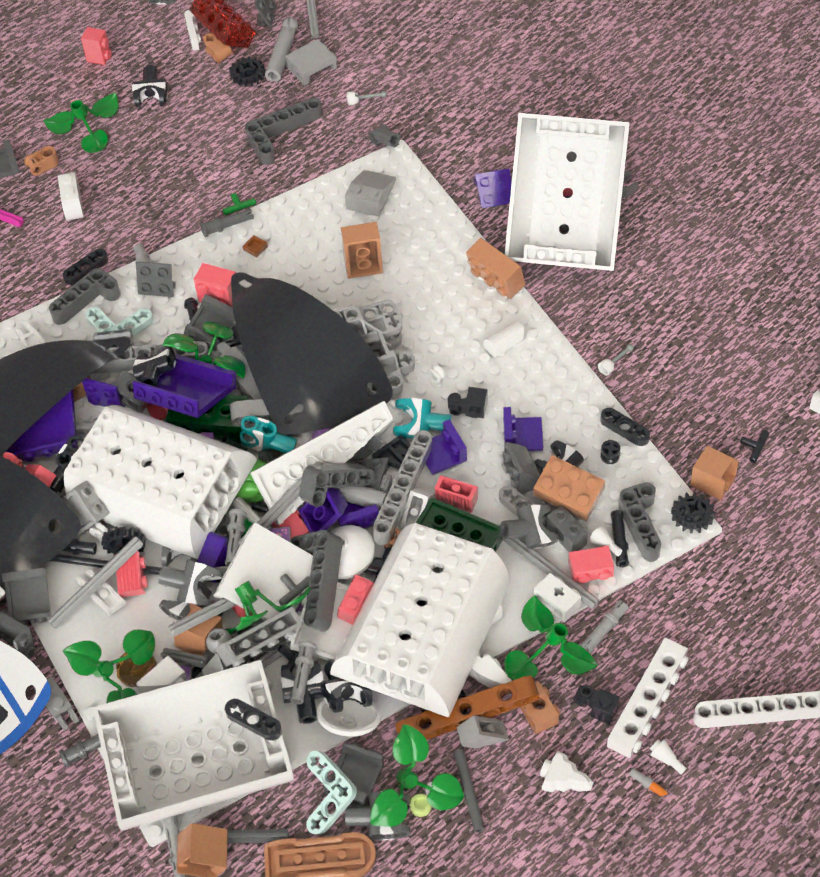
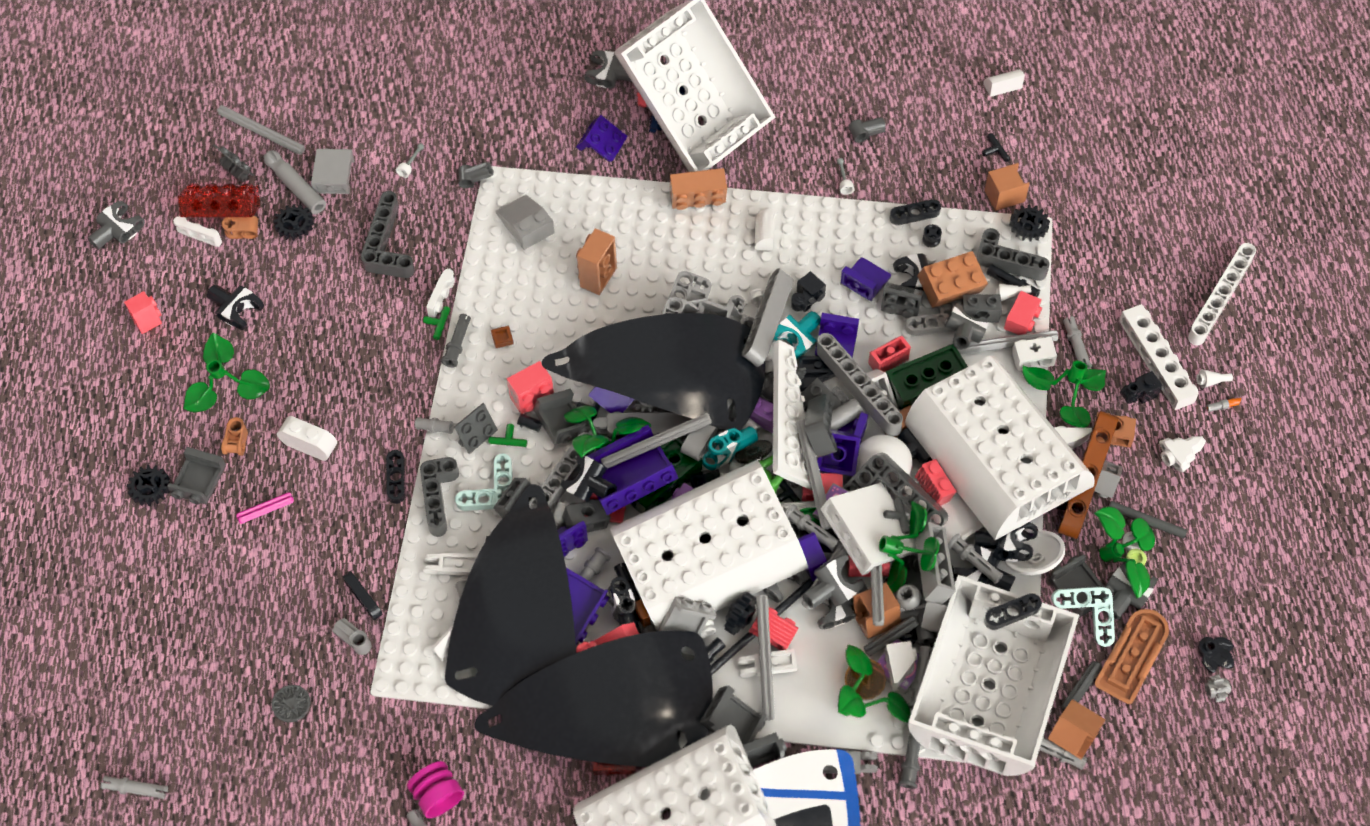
camera: 55 degrees left, 5 degrees up
(167, 308) = (508, 440): none -> green piece
(224, 385) = (656, 440): none -> light grey axle
(261, 187) = (440, 292): none -> white hinge
(411, 387) = (767, 317): none -> light grey beam
(676, 341) = (862, 130): none -> dark grey piece

